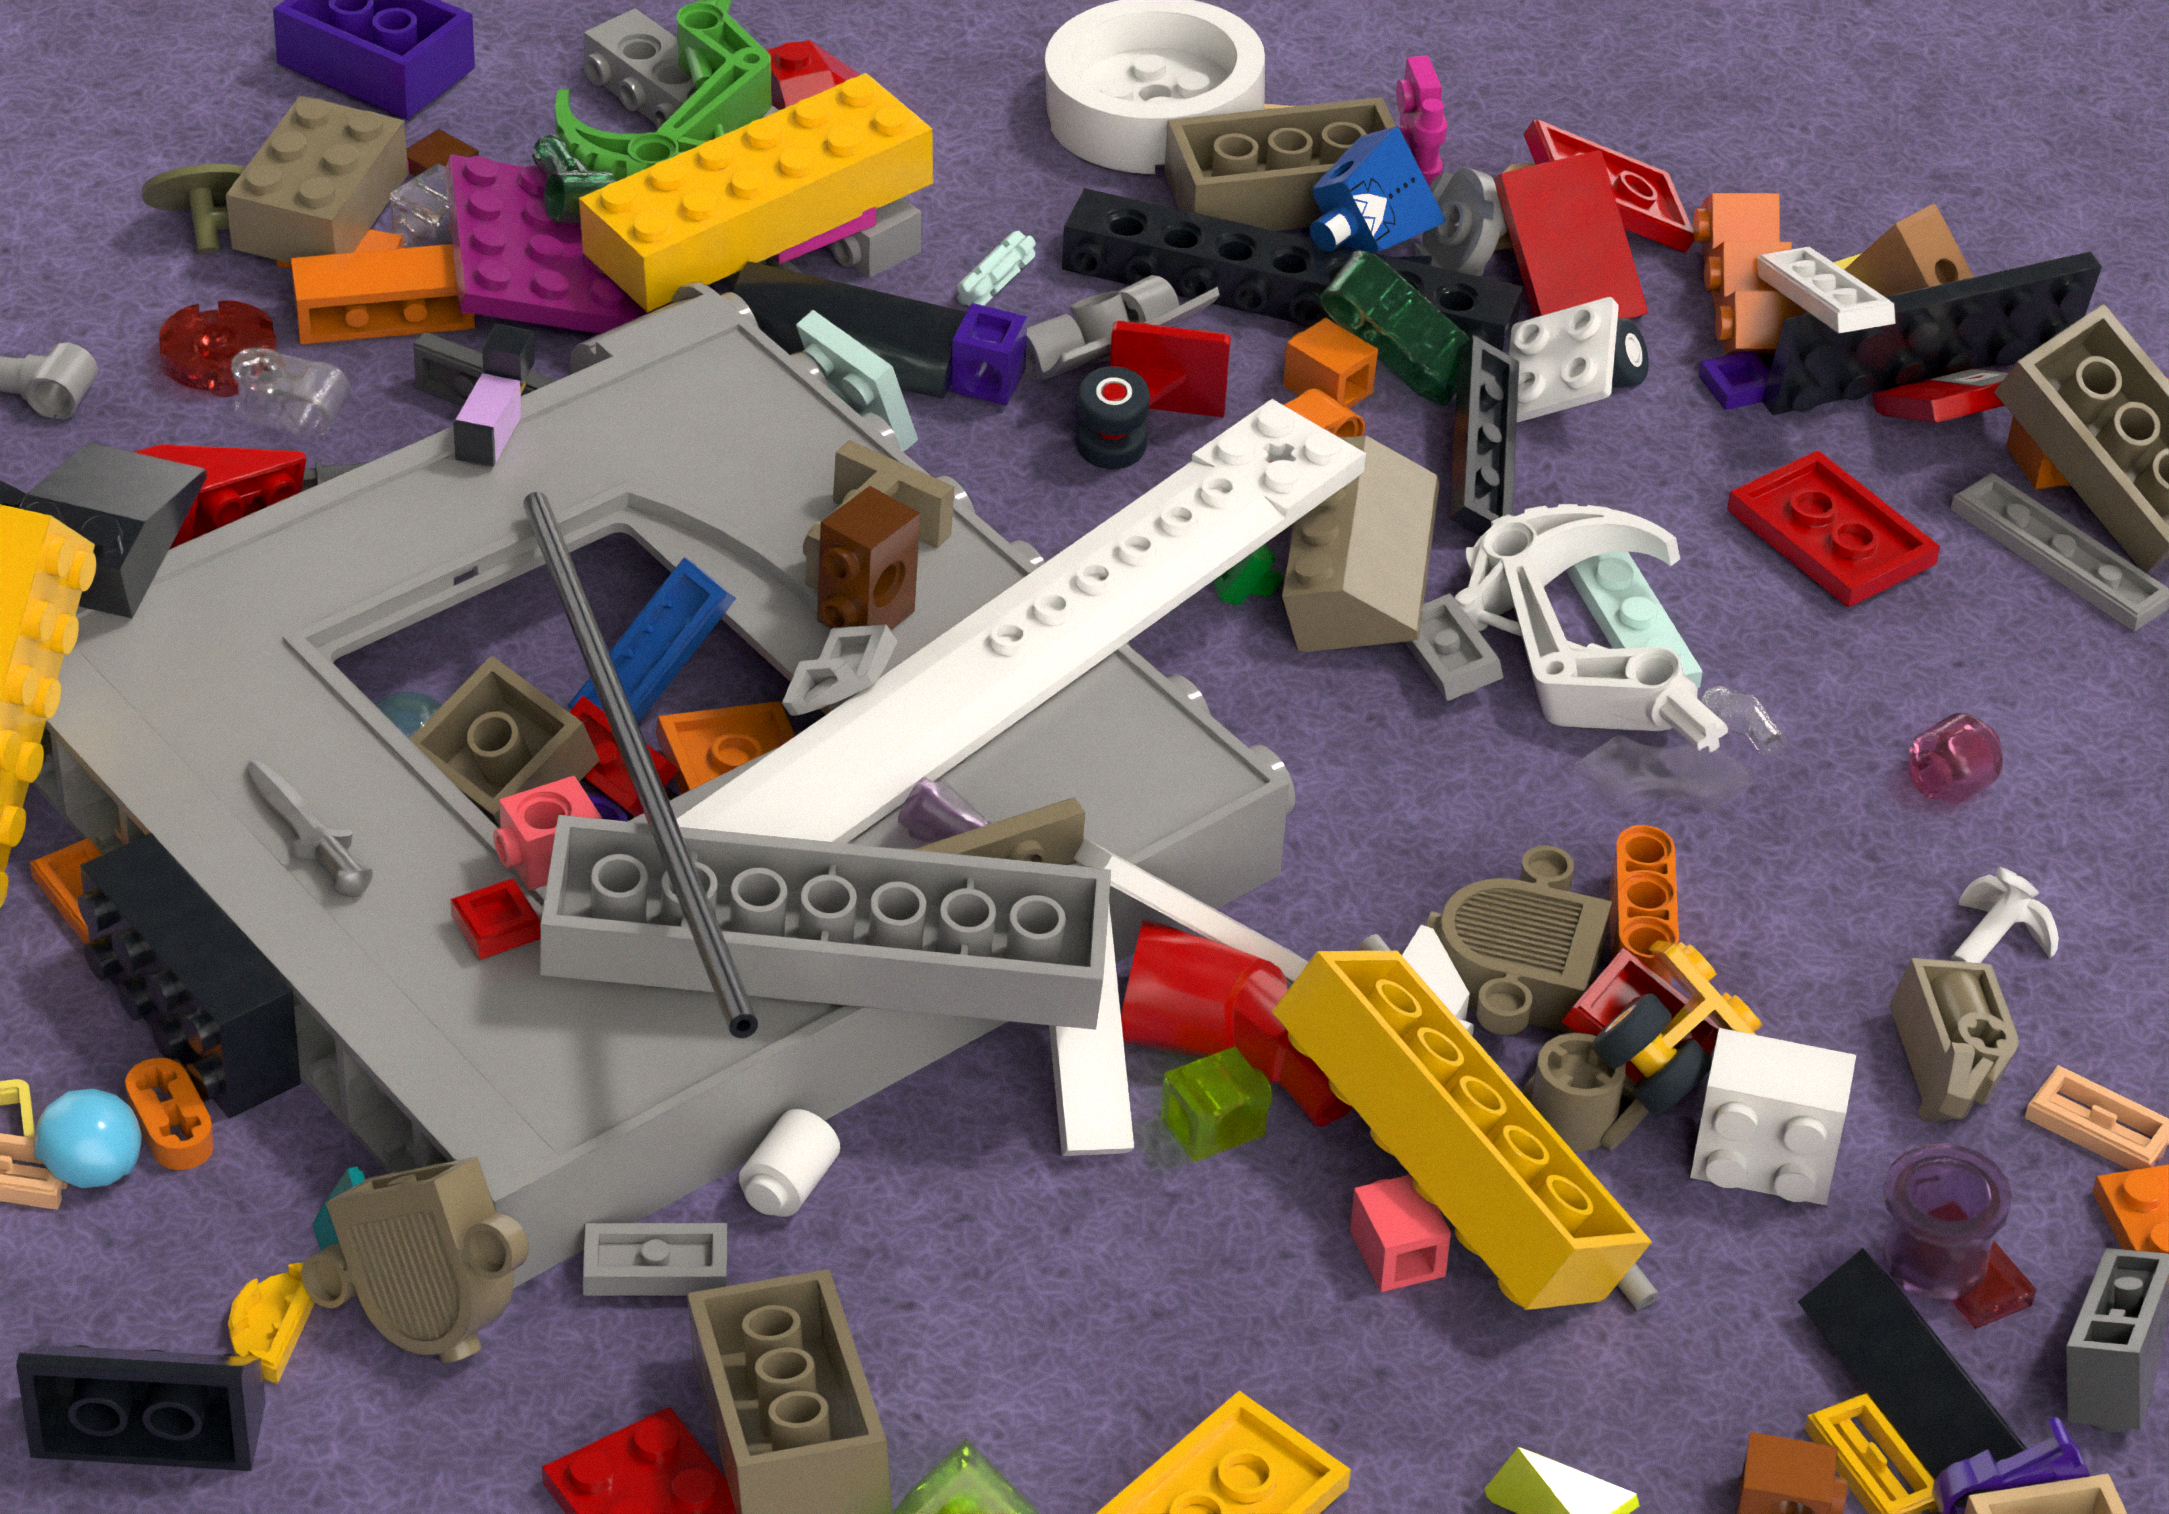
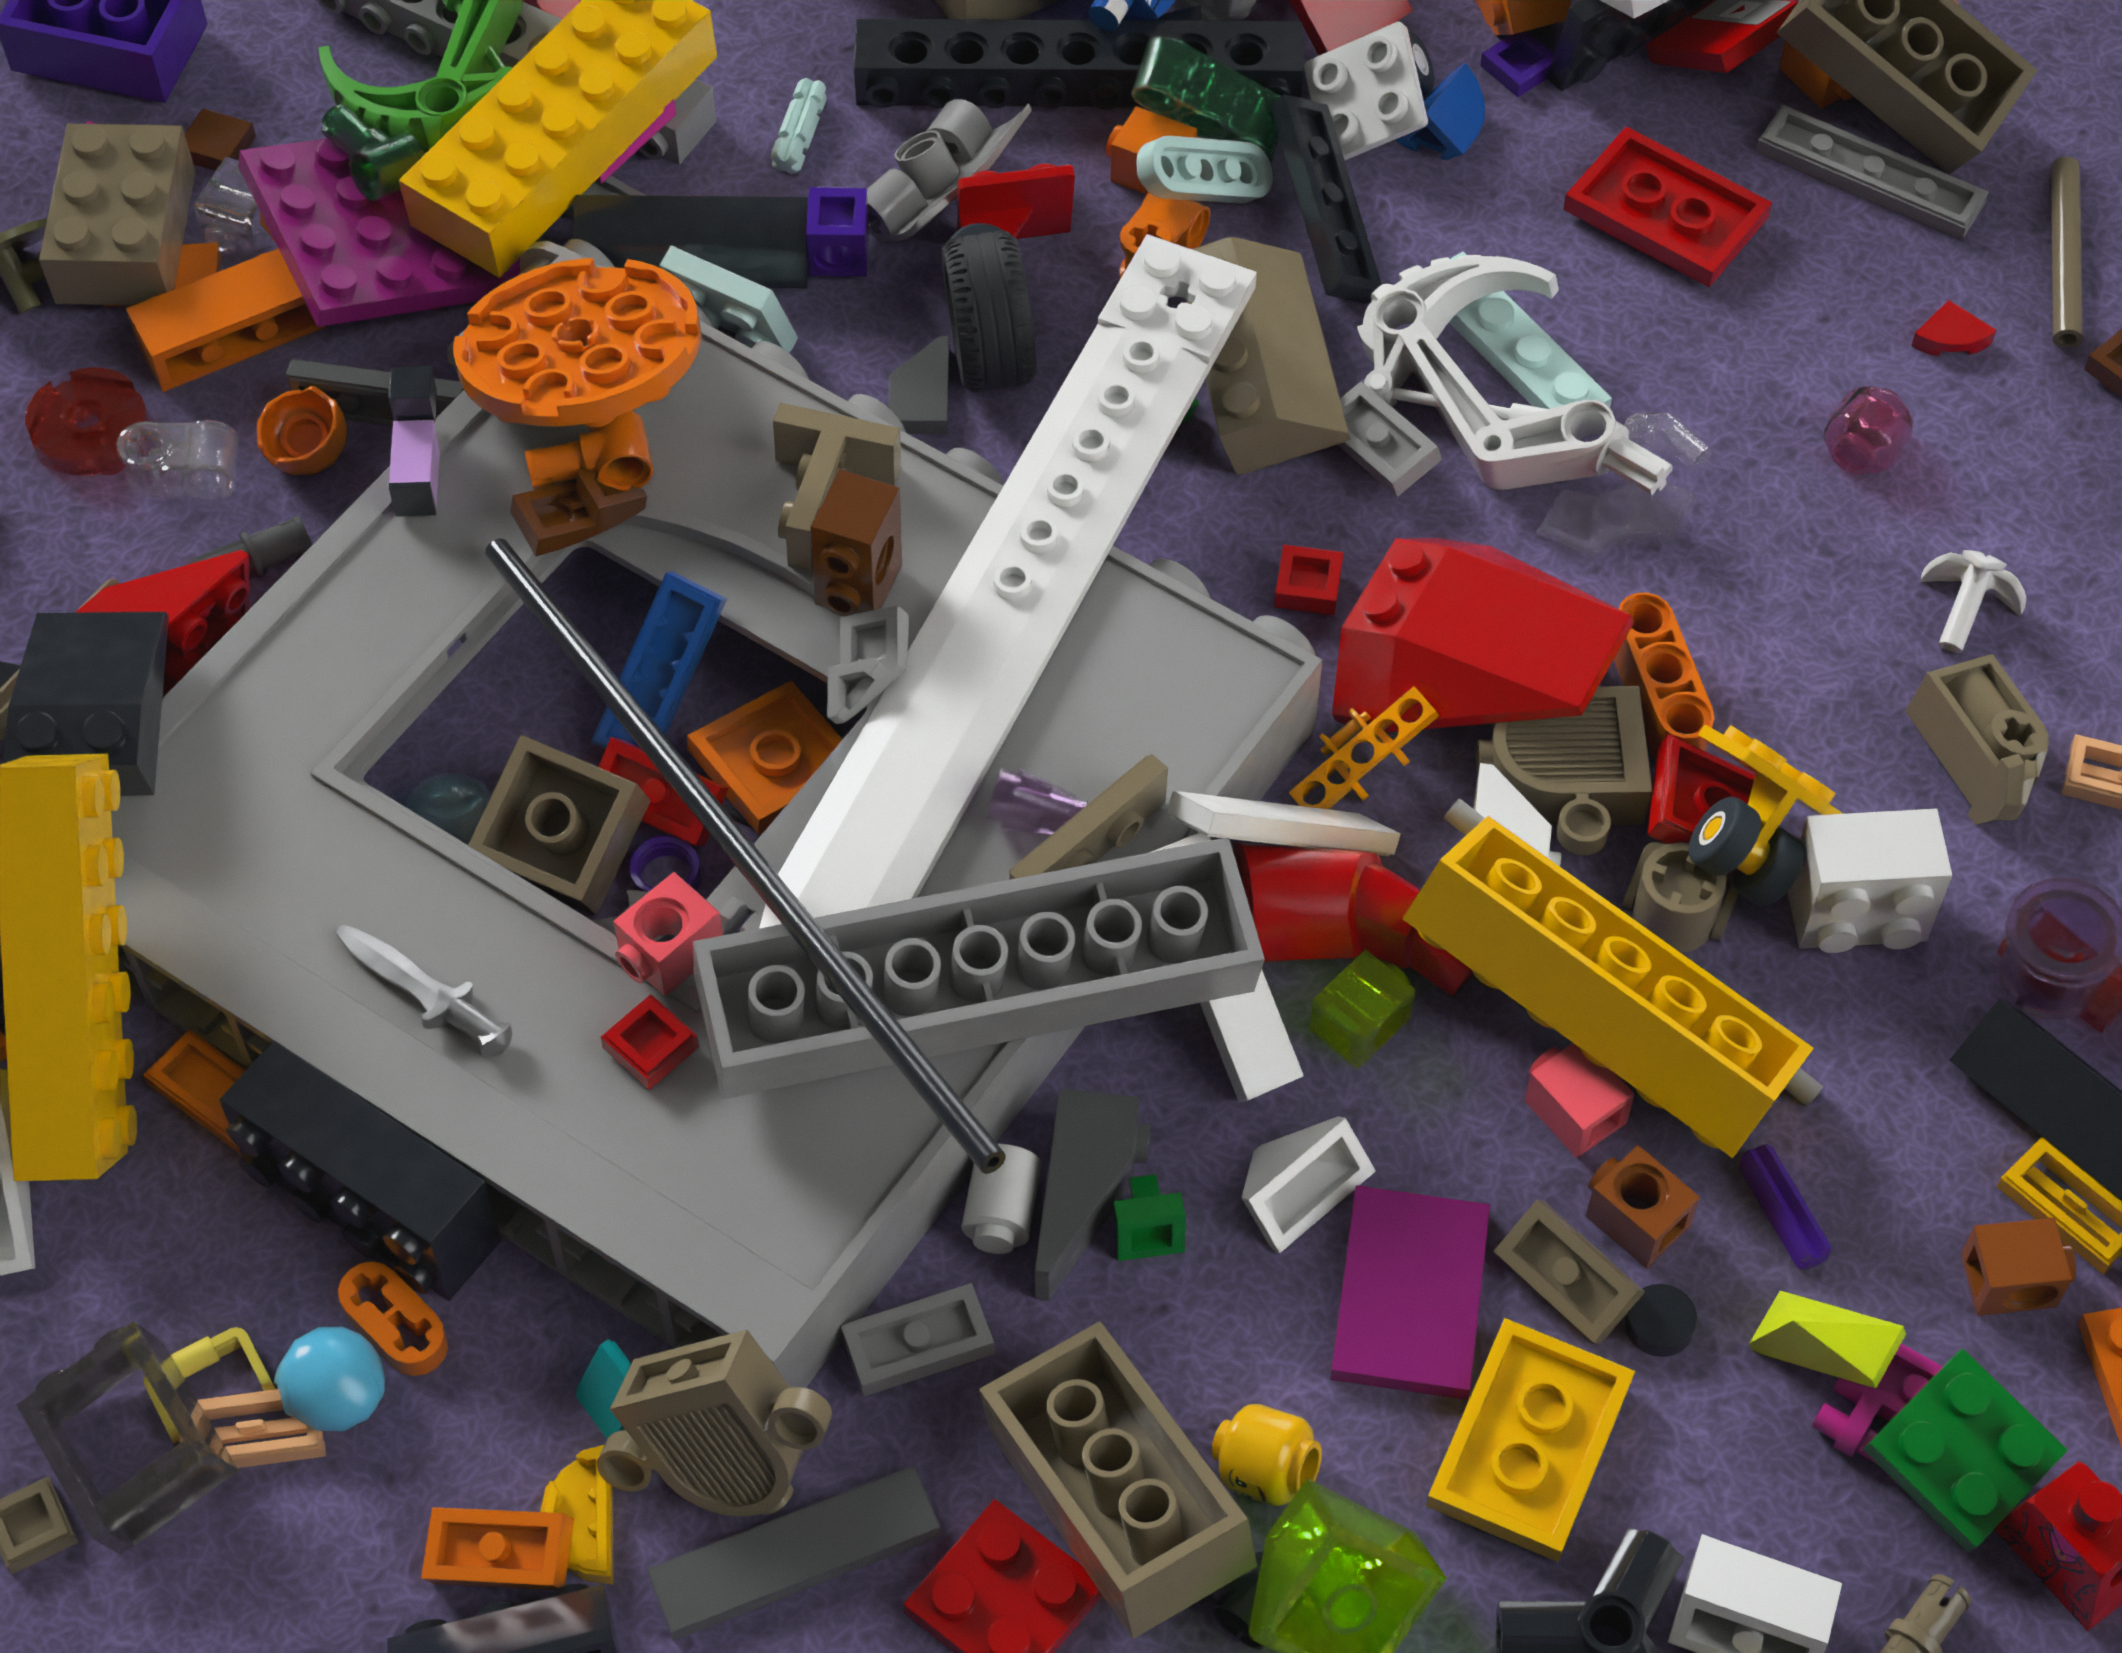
camera: 15 degrees left, 15 degrees up
(178, 1311) = (497, 1548): none -> orange plate
(410, 397) = (302, 432): none -> orange hair
(458, 1401) = (793, 1553): none -> dark grey tile
(620, 491) = (573, 511): none -> reddish brown slope
(675, 451) = (613, 451): none -> orange pin
(682, 352) = (530, 370): none -> orange plate
(875, 1172) = (1089, 1169): none -> dark grey slope
(922, 1222) = (1149, 1221): none -> green tile
(940, 1422) = (1266, 1454): none -> yellow head
(1020, 503) = (922, 390): none -> dark grey tile
(1095, 1233) = (1303, 1178): none -> white slope
(1097, 441) = (989, 311): none -> black tyre
(1159, 1353) = (1411, 1292): none -> magenta tile
(1322, 874) = (1373, 734): none -> light orange piece
(1323, 1373) = (1569, 1271): none -> dark tan plate
(1326, 746) = (1308, 579): none -> red plate
(1339, 367) = (1204, 169): none -> light aqua plate
(1402, 1444) = (1661, 1321): none -> black tile
(1422, 1337) = (1640, 1231): none -> dark orange brick
(1452, 821) = (1473, 637): none -> red wedge
(1572, 1383) = (1785, 1207): none -> dark purple axle
(1640, 403) = (1454, 116): none -> blue brick
(2085, 700) = (1953, 331): none -> red tile

